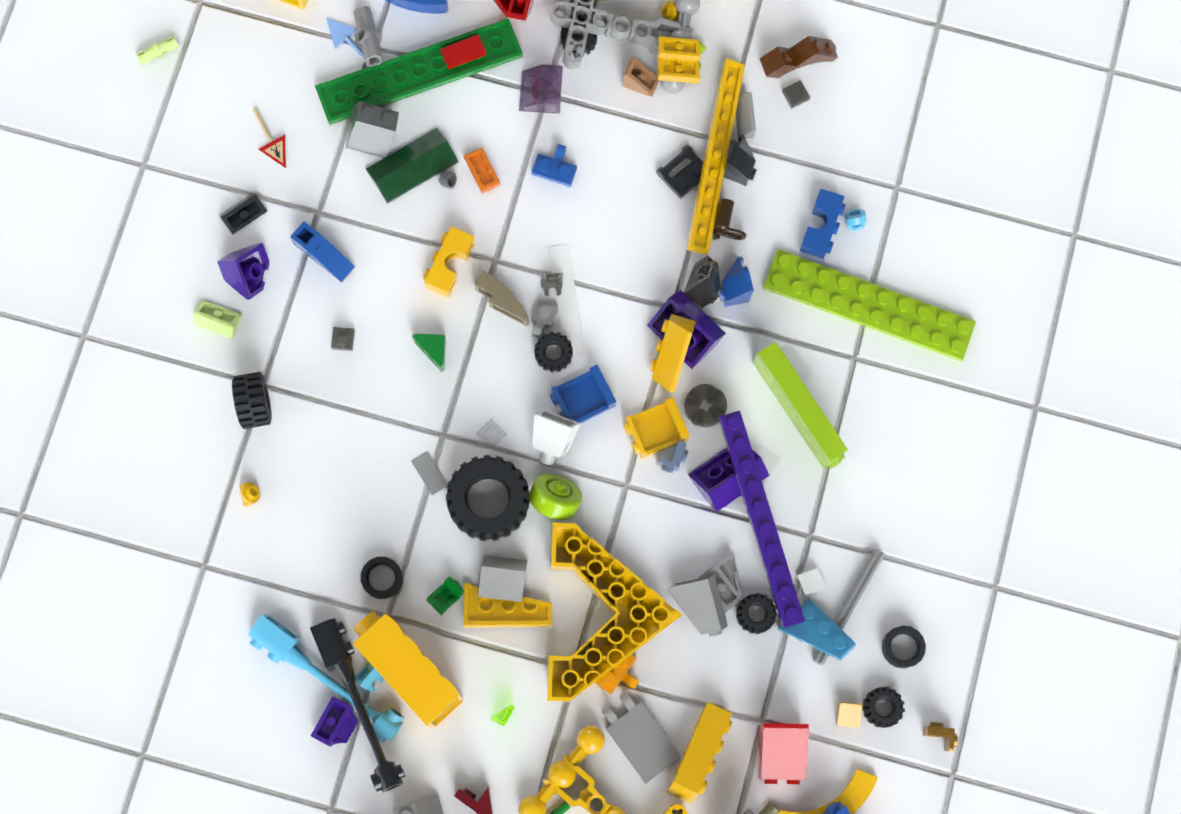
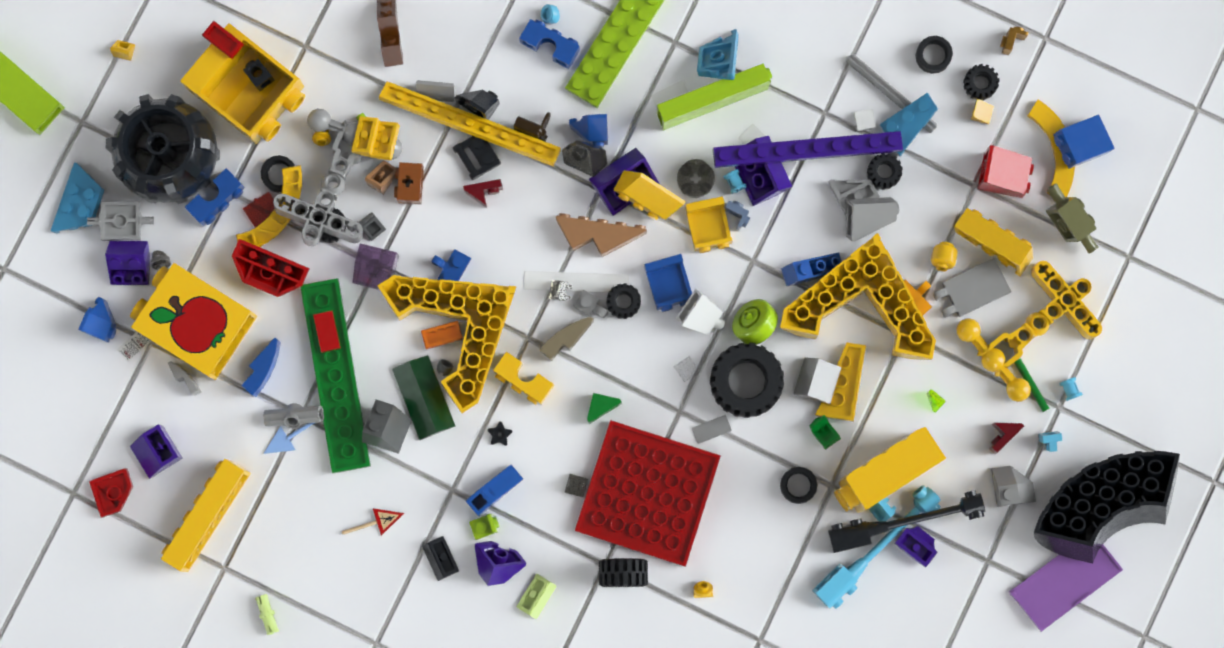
camera: 70 degrees left, 5 degrees up
(283, 251) = (484, 526): none -> lime bracket
(346, 415) = (647, 493): none -> red plate
(380, 246) = (499, 429): none -> black plate
(515, 206) = (479, 304): none -> yellow wedge
(585, 79) = (372, 226): none -> dark grey slope
(620, 319) = (605, 235): none -> medium nougat slope
(627, 548) = (810, 269): none -> blue slope
(631, 114) = (407, 172): none -> dark orange brick
(645, 179) = (478, 190): none -> dark red slope
(671, 697) = (944, 256): none -> yellow head
(710, 448) = (734, 181): none -> medium azure bush
(796, 94) = (422, 42): clear smoke tile -> none
(845, 404) = (719, 58): none -> dark azure wing

